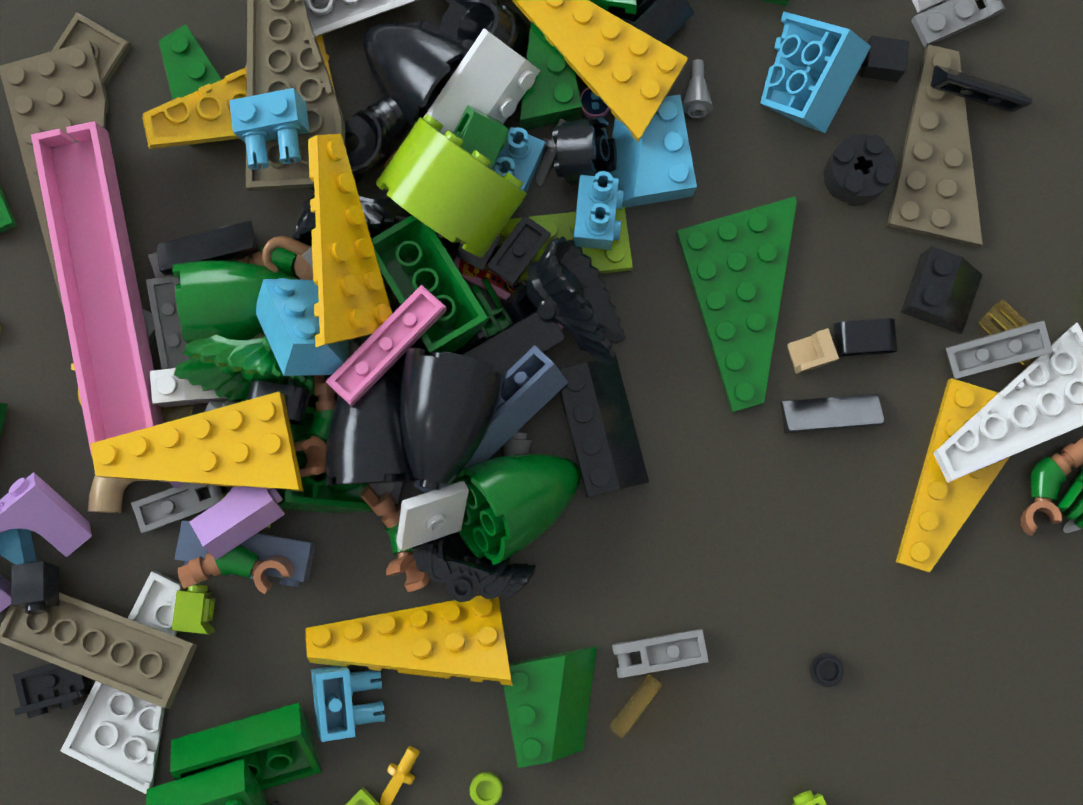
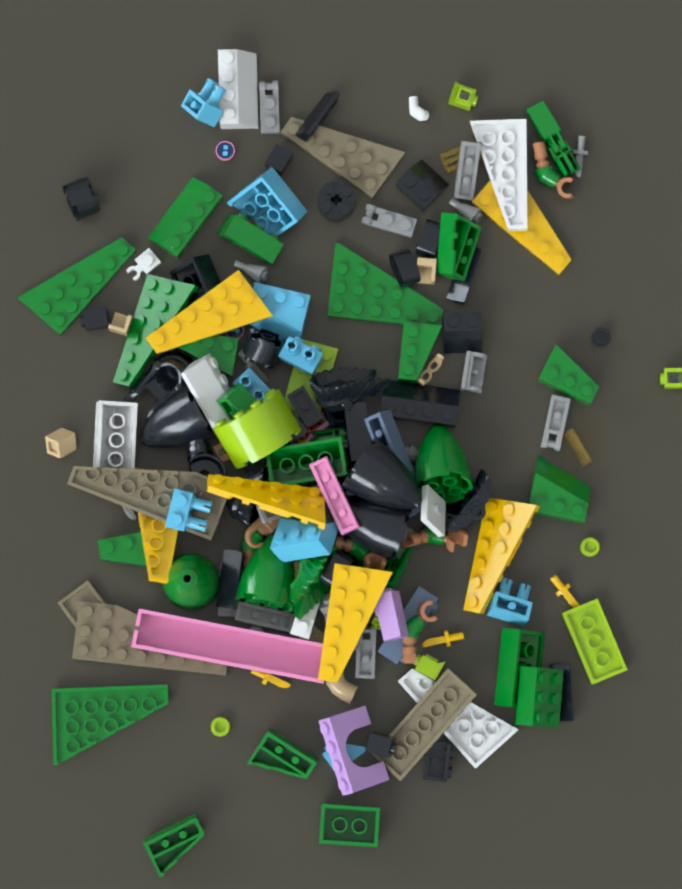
camera: 70 degrees left, 0 degrees up
(181, 189) = (201, 588): none -> green cylinder
(250, 621) = (447, 638): none -> yellow piece
(681, 428) = (438, 359): none -> tan cap
(685, 384) = (415, 349): none -> green wedge
(685, 491) = (473, 372): none -> light grey hinge
(740, 447) = (462, 332): none -> black slope
(740, 644) = (567, 377): none -> green wedge
(746, 64) = (250, 237): none -> green wedge
(802, 316) = (404, 267): none -> black beam
(864, 265) = (389, 221): none -> light grey plate
(874, 381) = (456, 245): none -> green wedge
(932, 383) = (467, 211): none -> light grey cone
(1053, 236) = (416, 111): none -> white arm

